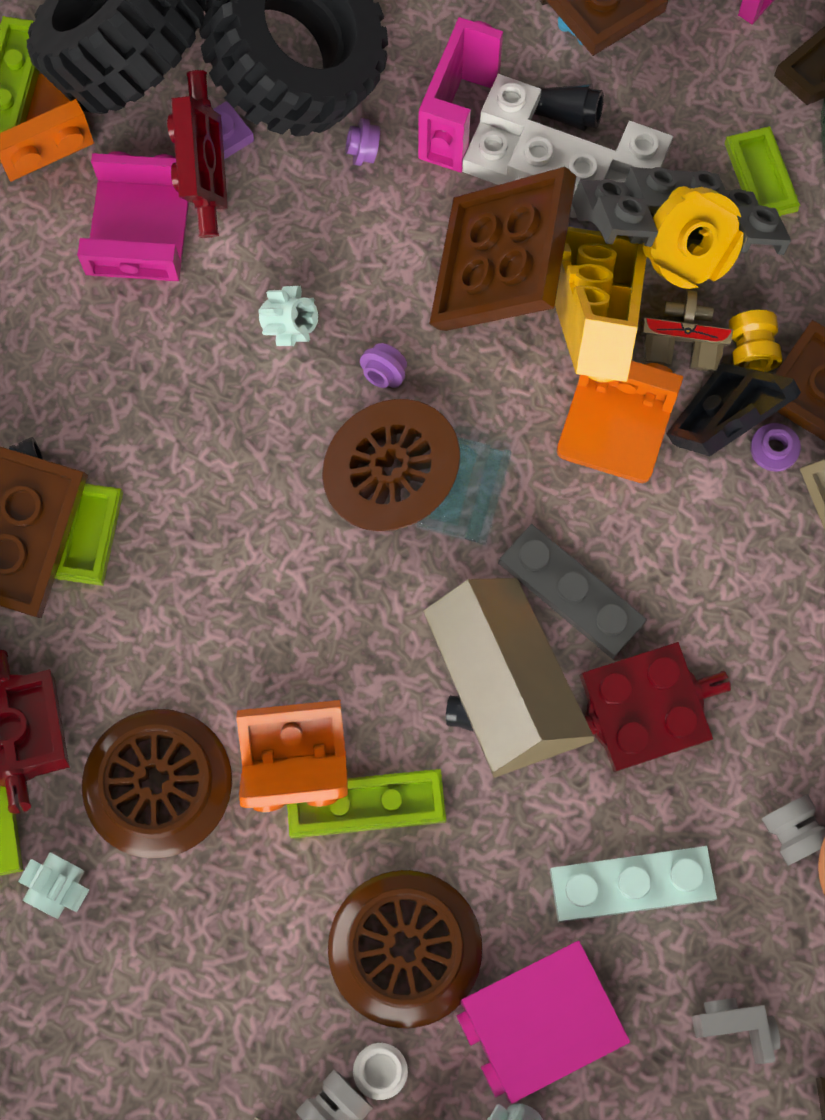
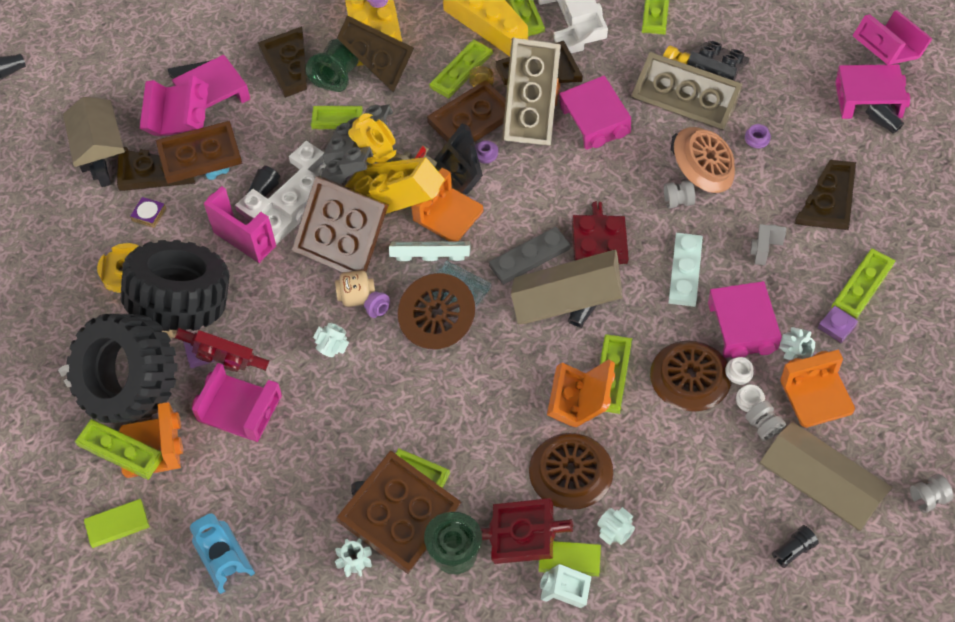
camera: 70 degrees left, 15 degrees down
(363, 142) = (241, 281): medium lavender plate -> none
(399, 317) = (354, 288): none -> tan head
(432, 1037) = (739, 370): none -> white plate
(523, 416) = (430, 250): none -> light aqua plate
(755, 340) = (433, 141): yellow wheel -> none

